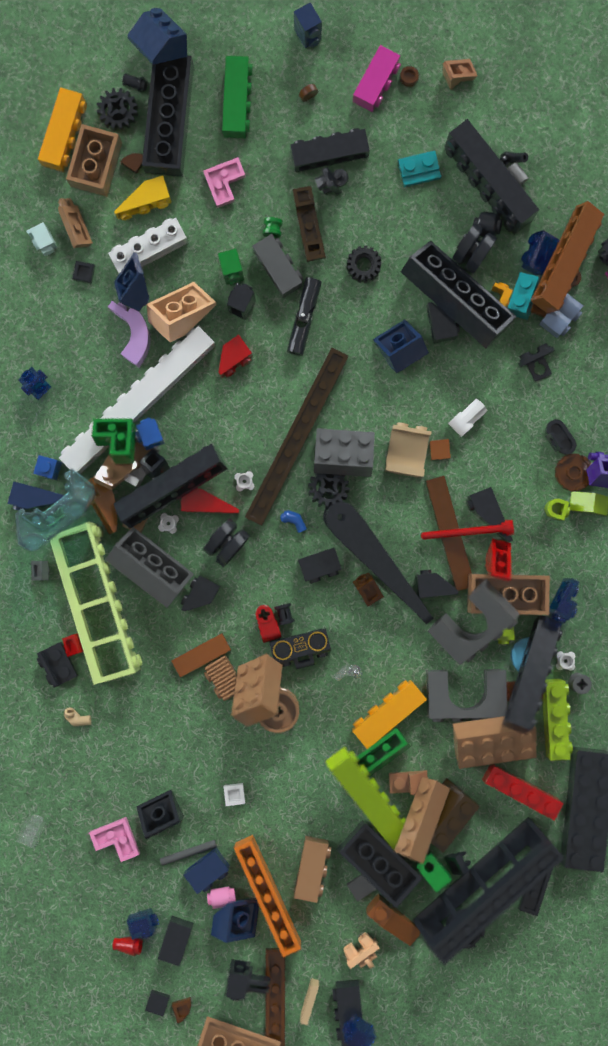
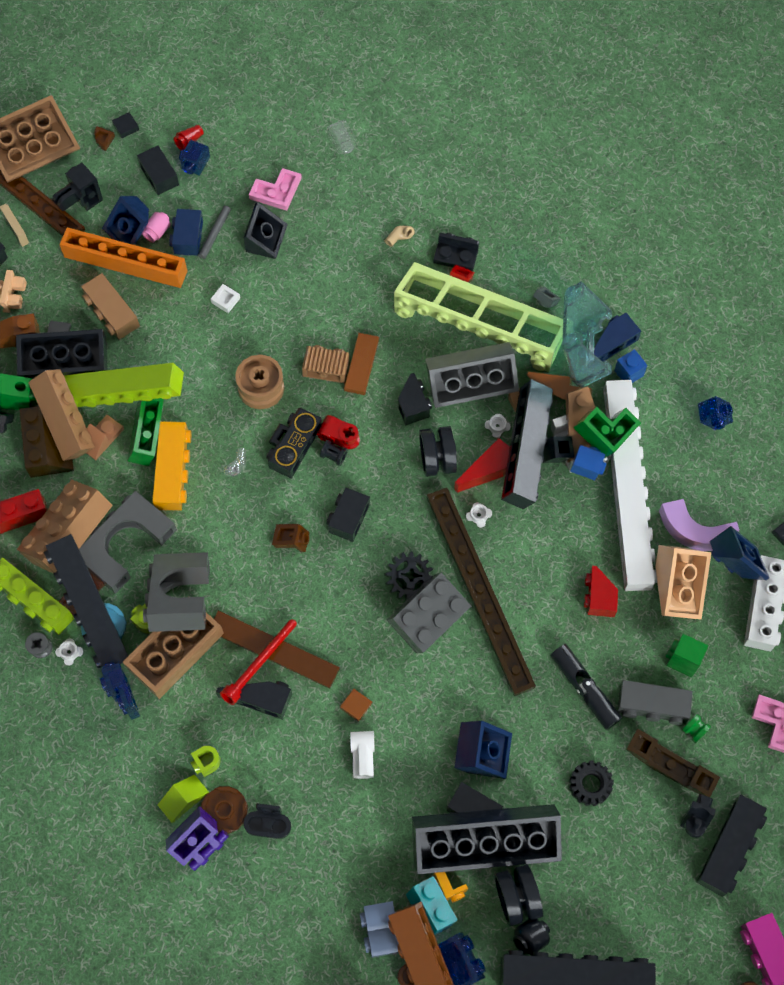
camera: 125 degrees right, 20 degrees down
(241, 300) = (646, 638): black brick -> none
(257, 690) = (291, 370): medium nougat brick -> none
(295, 518) = (409, 528): blue arm -> none
(363, 543) = (341, 560): black piece -> none
(407, 450) = (380, 673): tan panel -> none
(419, 168) = (644, 921): teal plate -> none
(433, 585) = (241, 593): black slope -> none
(499, 559) = (209, 658): red slope -> none
(529, 360) = (360, 876): black bracket -> none

